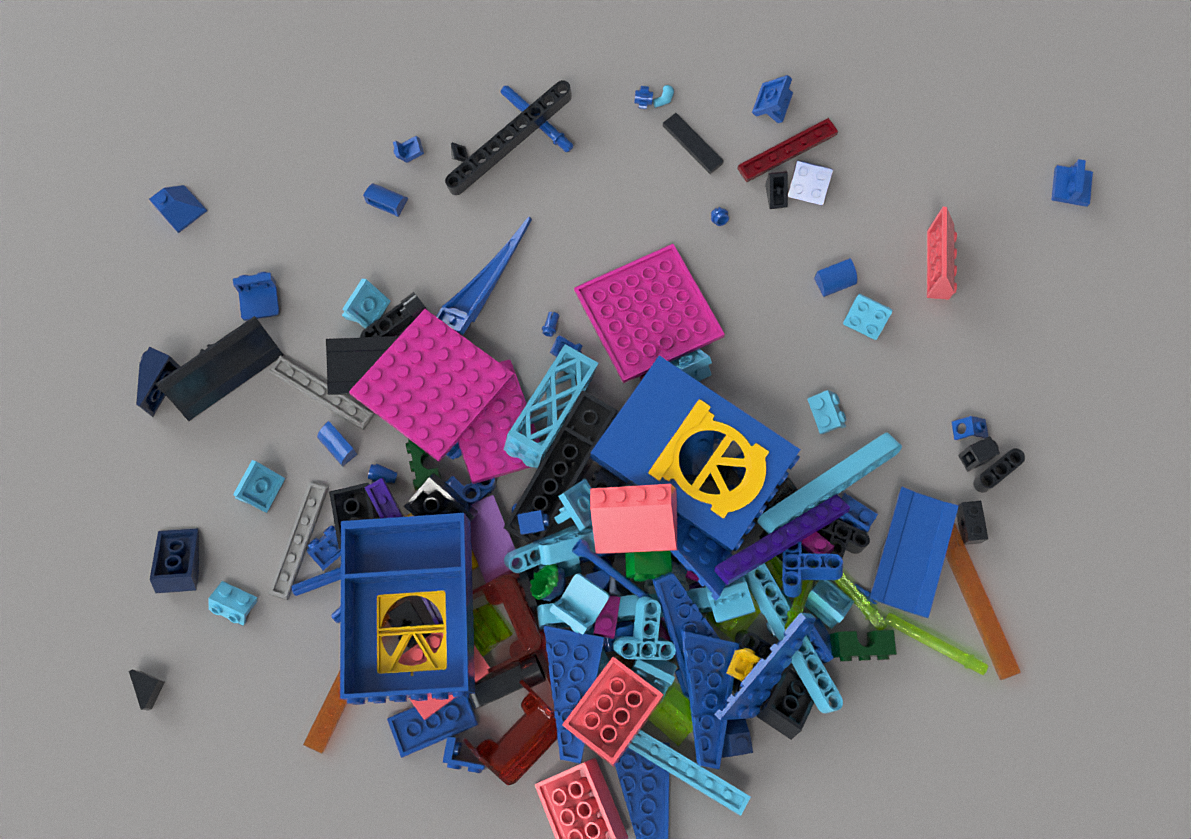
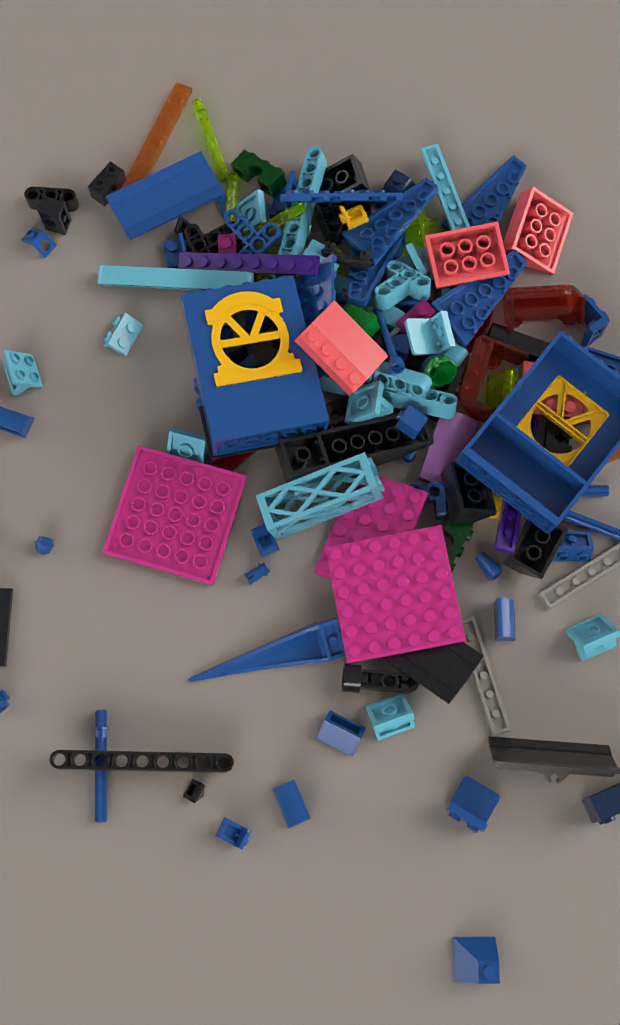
camera: 135 degrees left, 0 degrees up
(391, 269) = (340, 733): none -> brick
(715, 613) = (361, 262): none -> black piece
(876, 541) = (180, 227): none -> black slope

